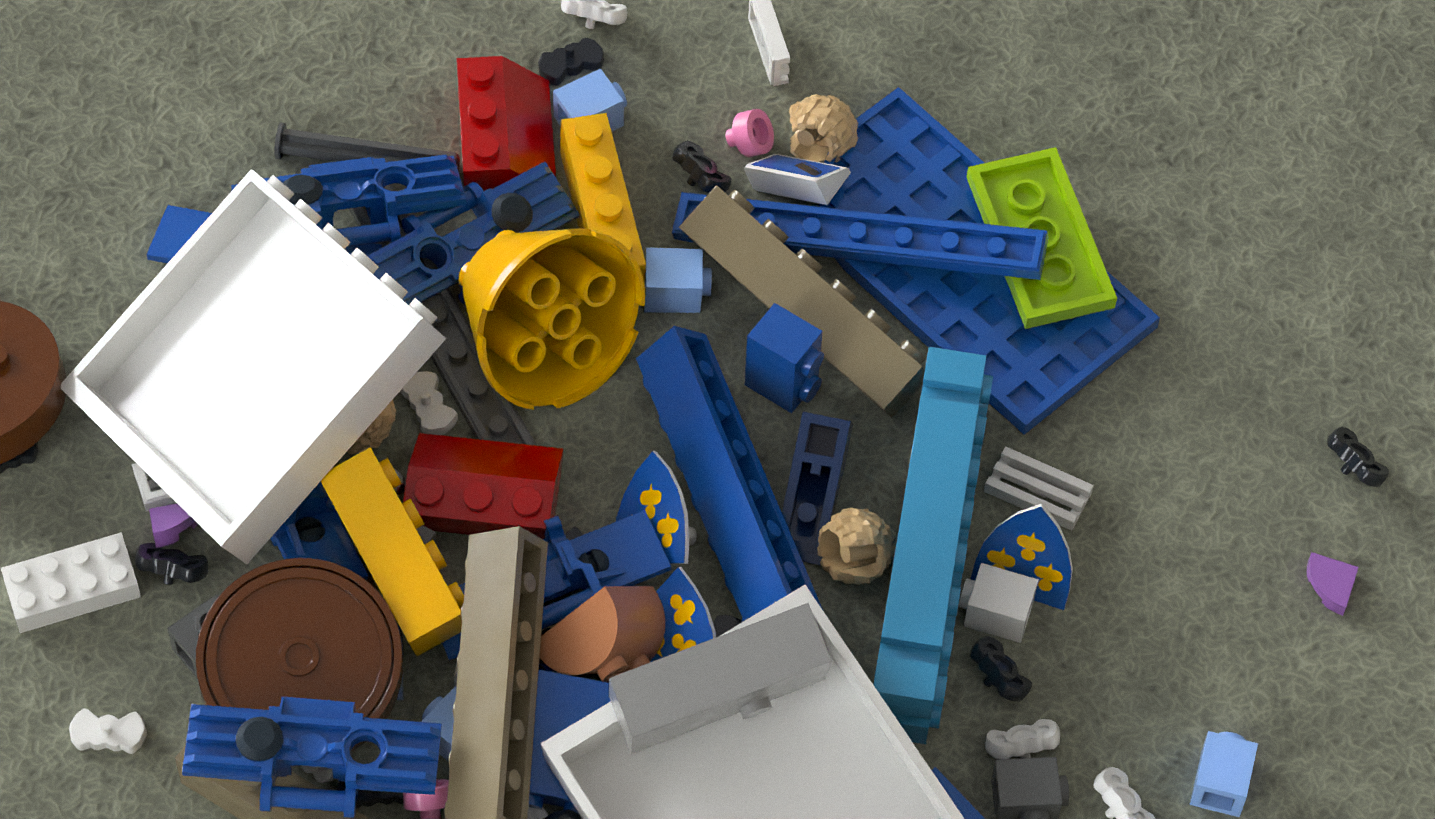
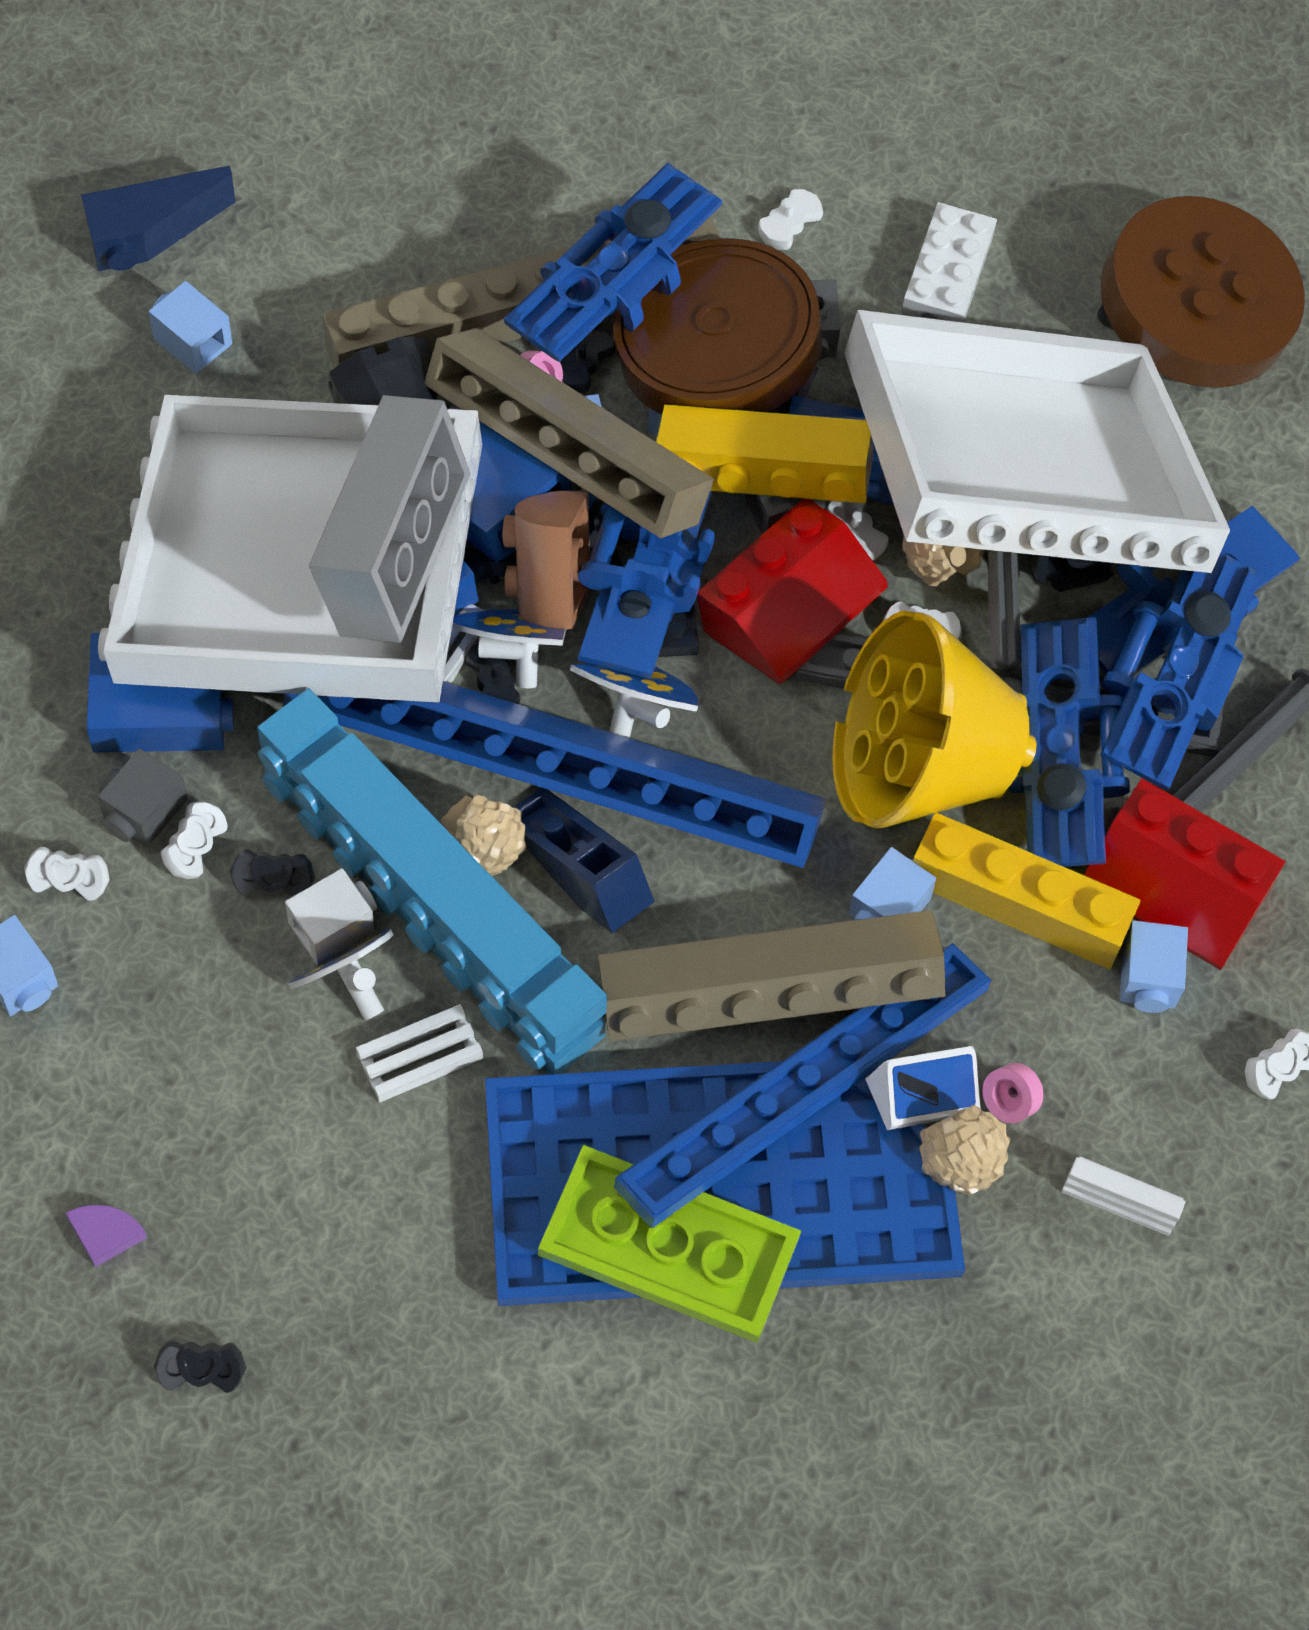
camera: 125 degrees right, 5 degrees up
(570, 60) = (1233, 1004): black piece -> none
(700, 167) = (1008, 1021): black piece -> none
(784, 358) = (717, 899): blue brick -> none

